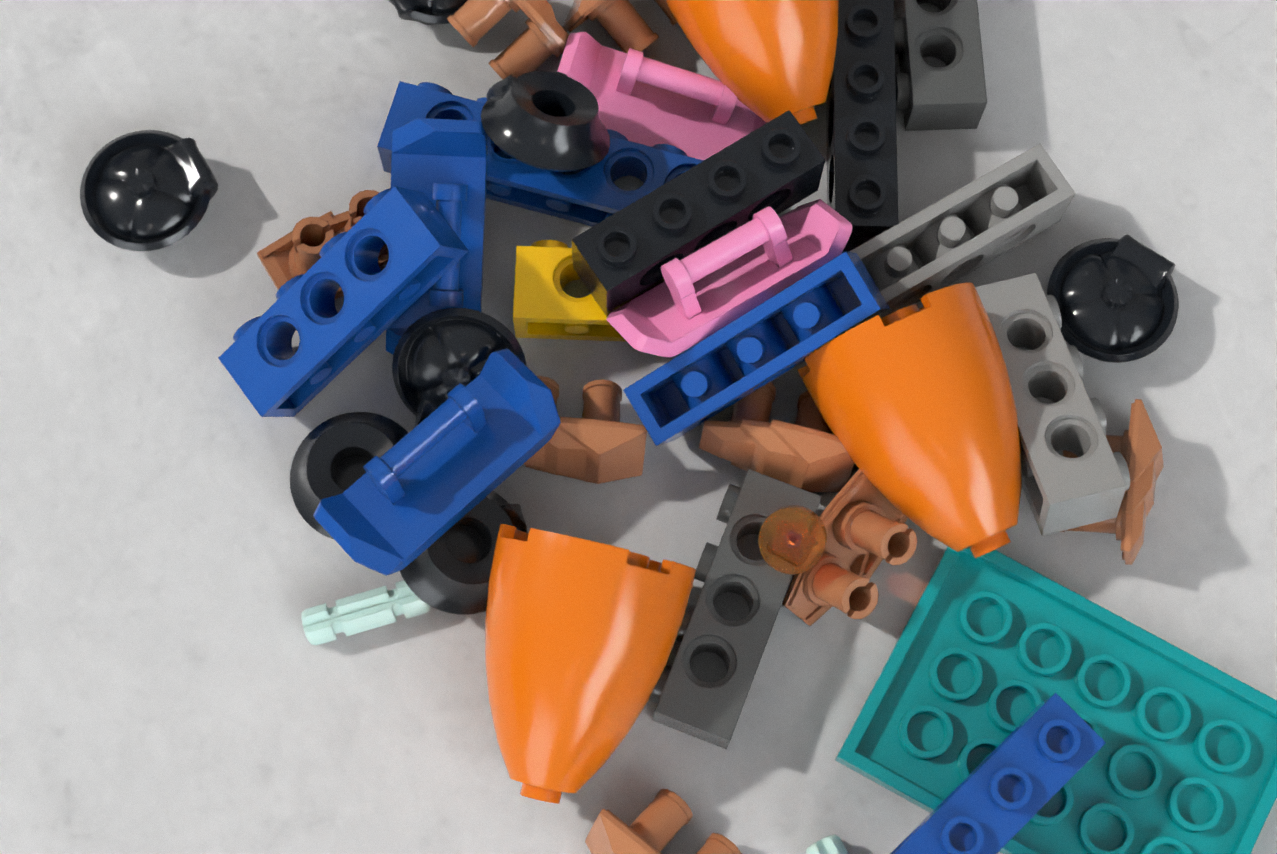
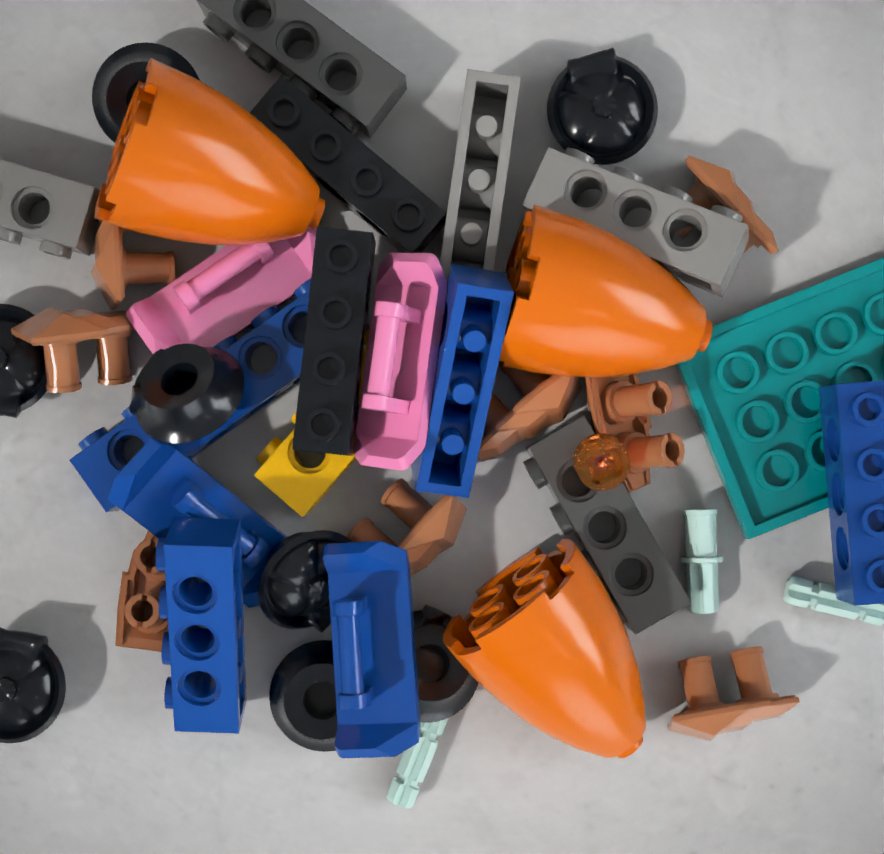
camera: 45 degrees left, 15 degrees up
(778, 731) = (701, 560): none -> light aqua axle

